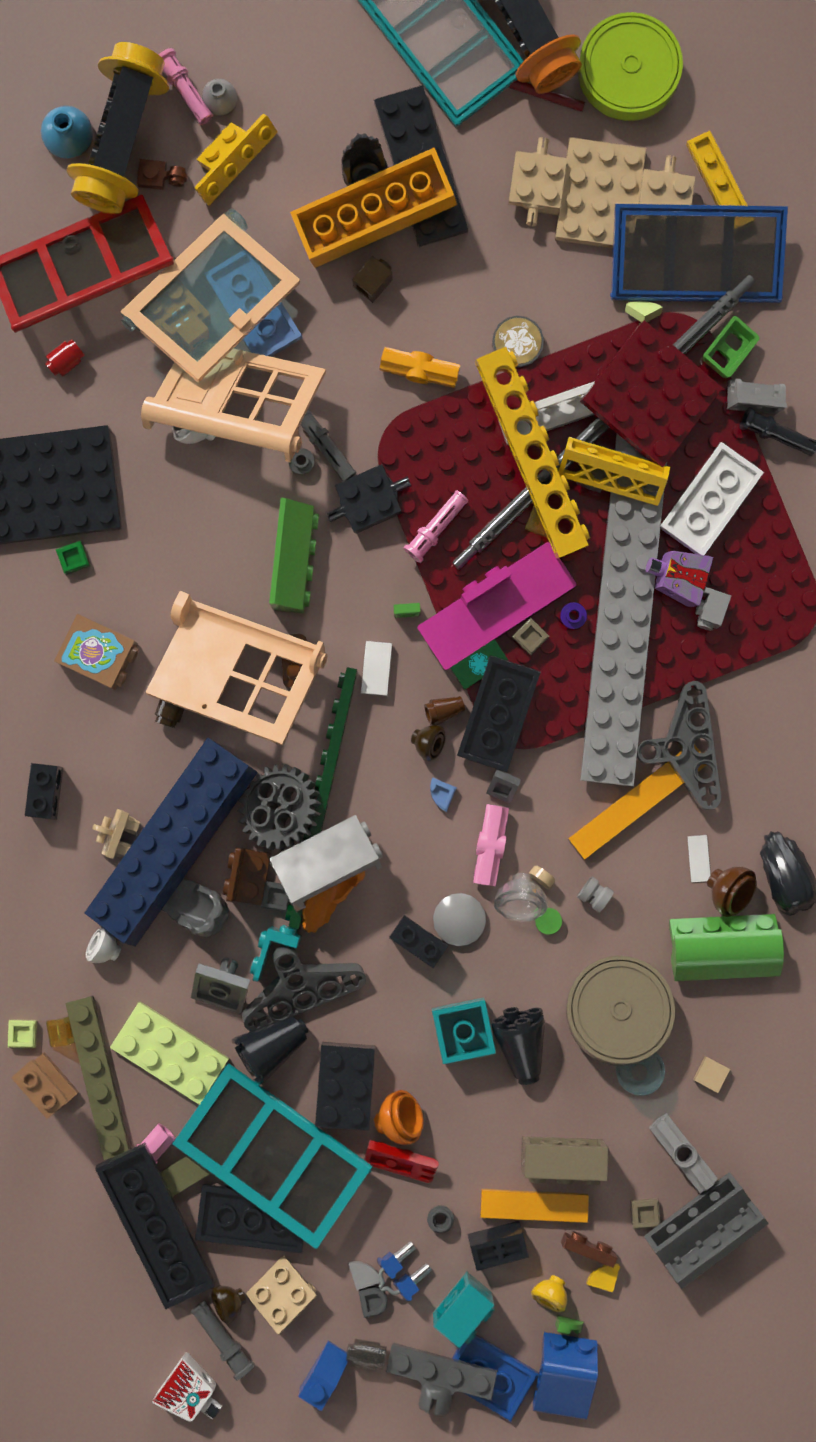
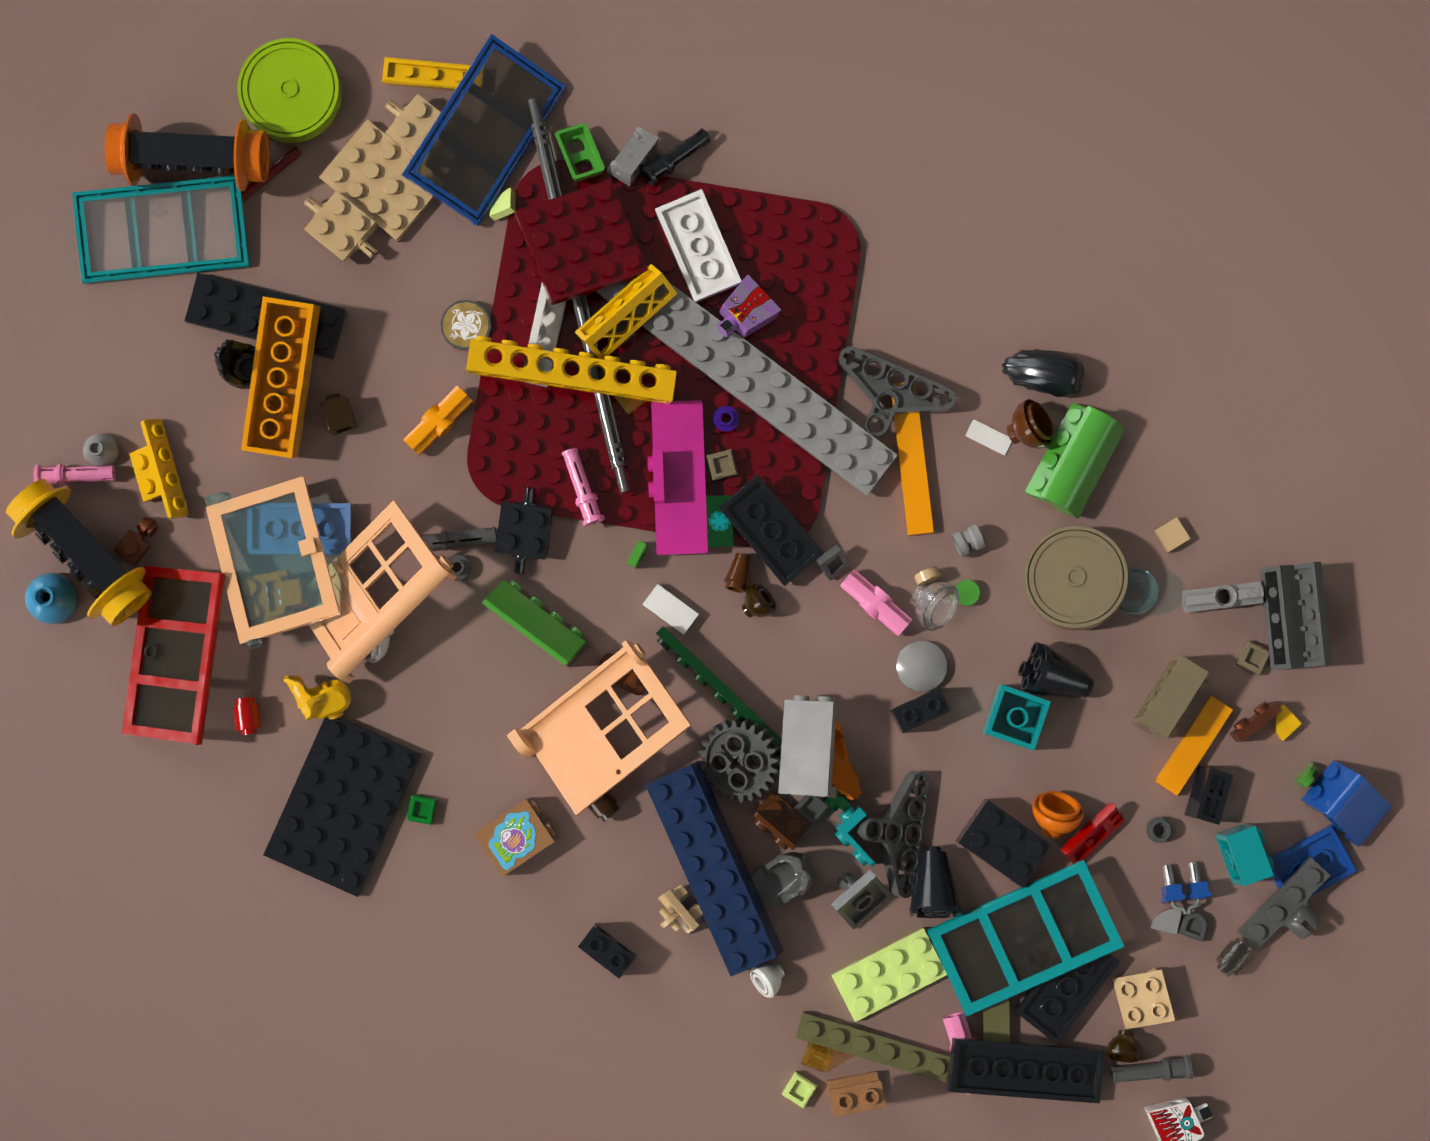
camera: 55 degrees left, 0 degrees up
(113, 413) = (322, 701): none -> yellow head
(323, 1376) = (1231, 1003): blue slope -> none
(441, 793) = (808, 617): medium blue tile -> none
(551, 1294) = (1273, 775): yellow brick -> none
(712, 609) = (790, 301): light grey brick -> none

